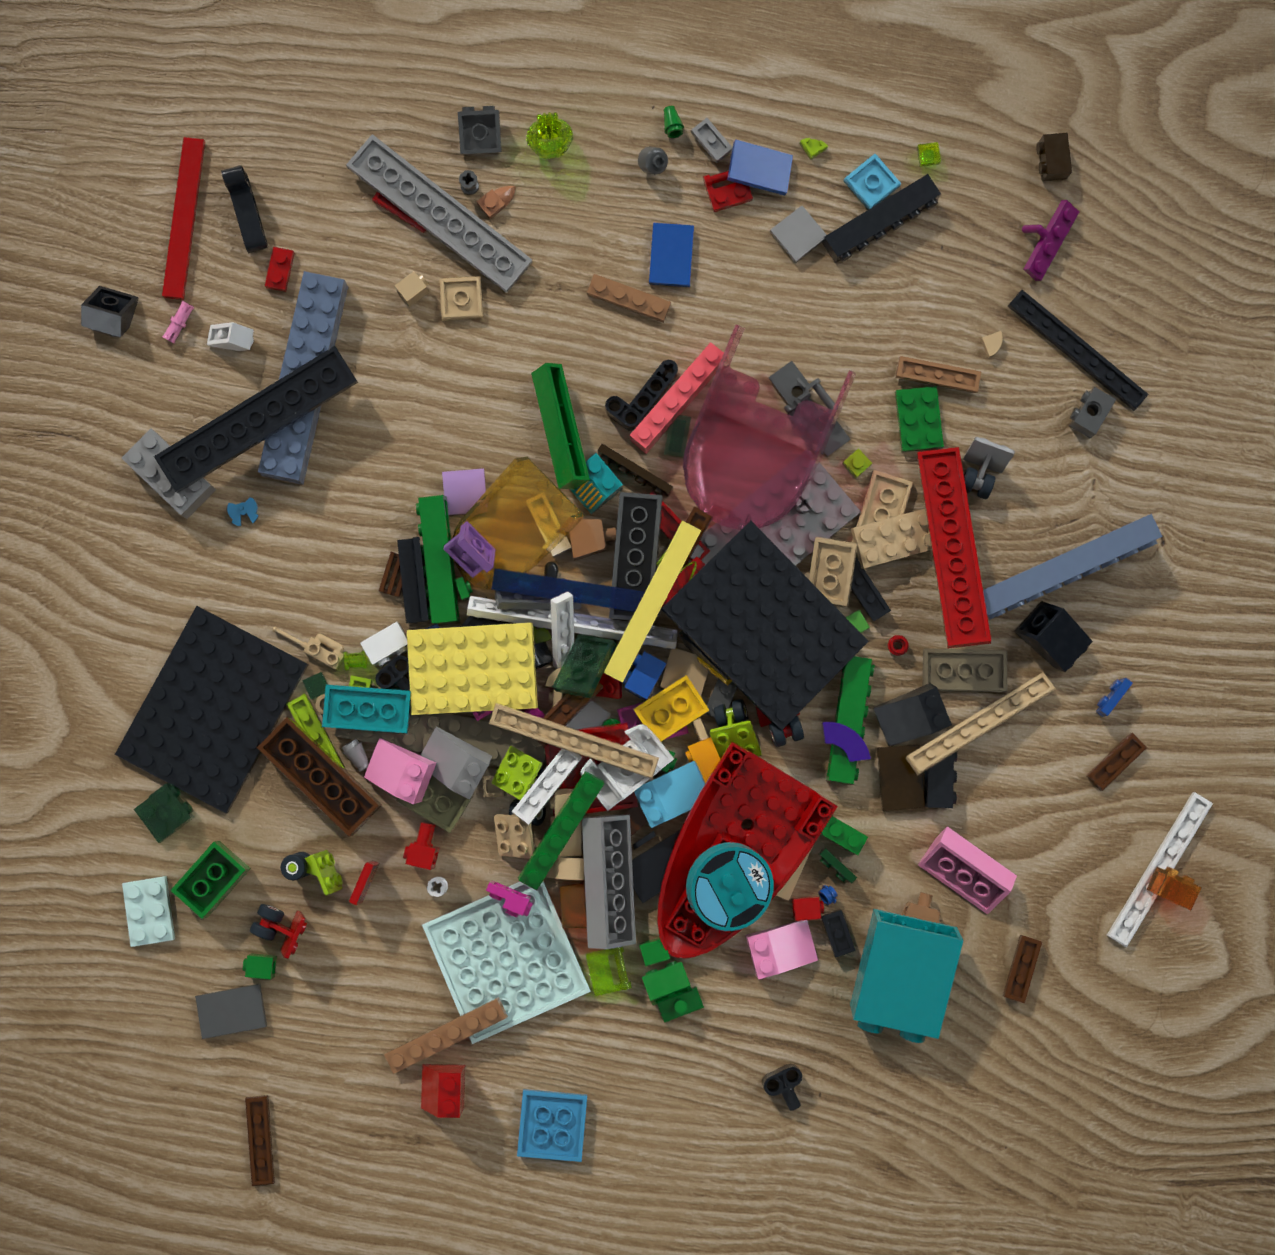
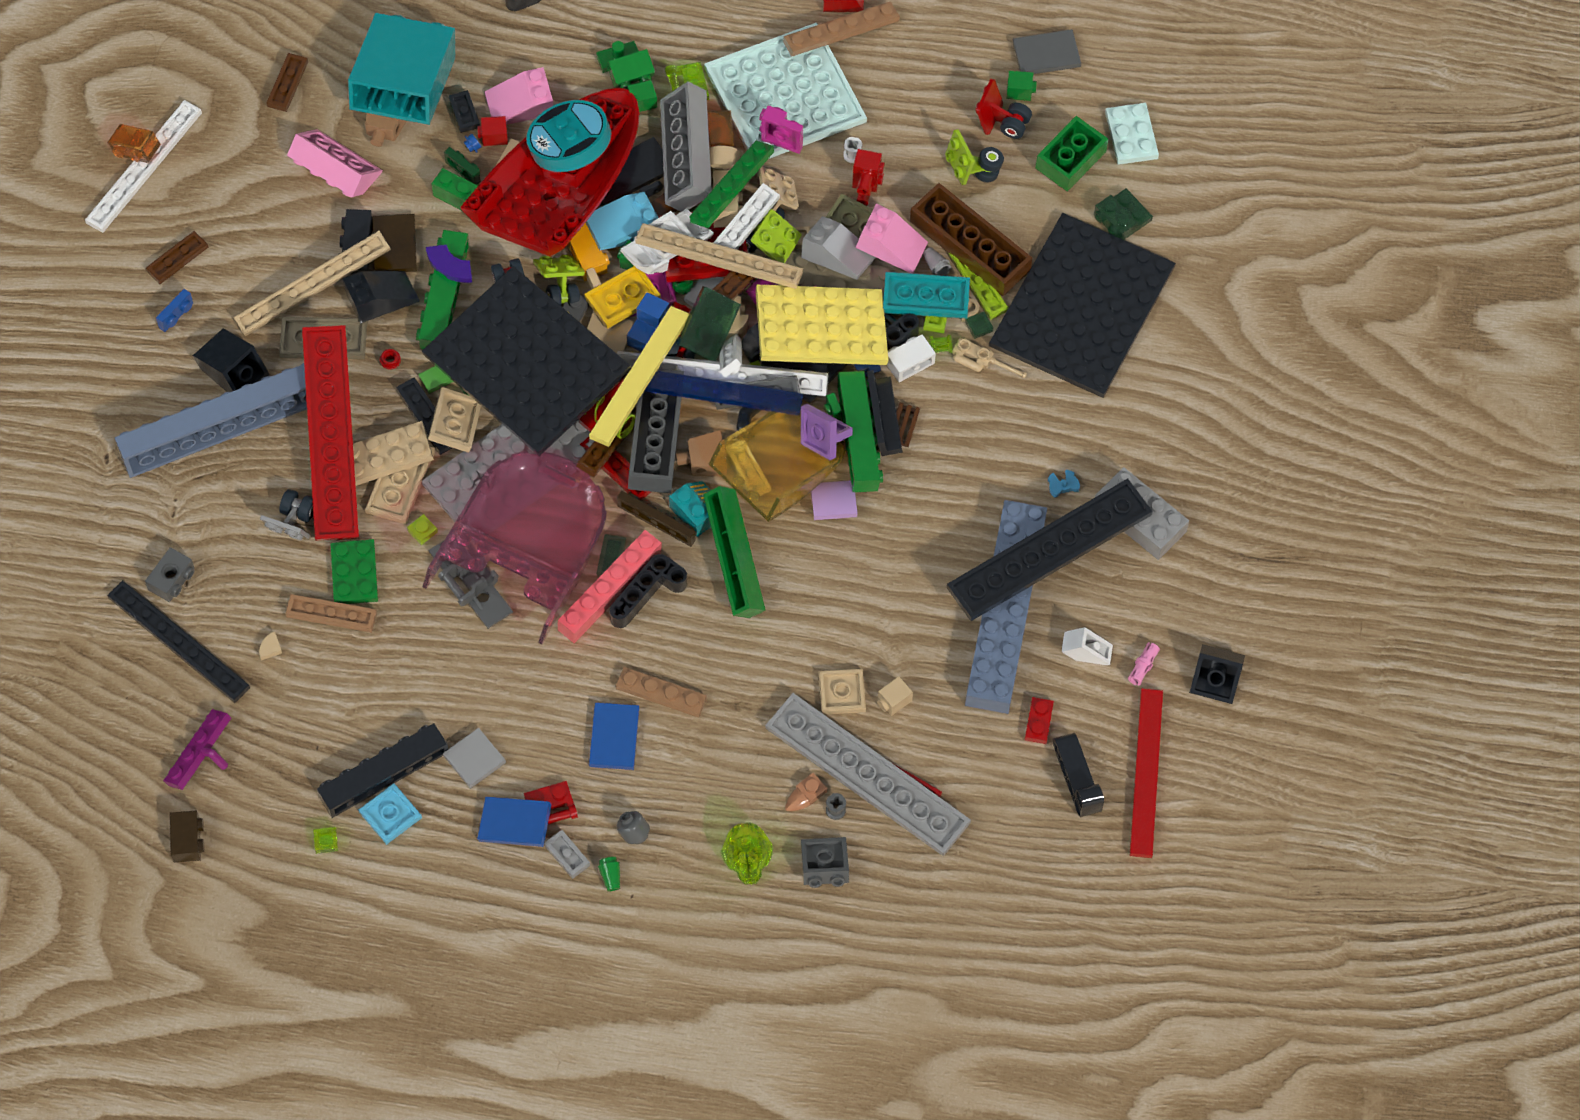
camera: 175 degrees left, 20 degrees down
(364, 882) = (923, 148): red tile -> none
(813, 147) = (453, 851): lime tile -> none

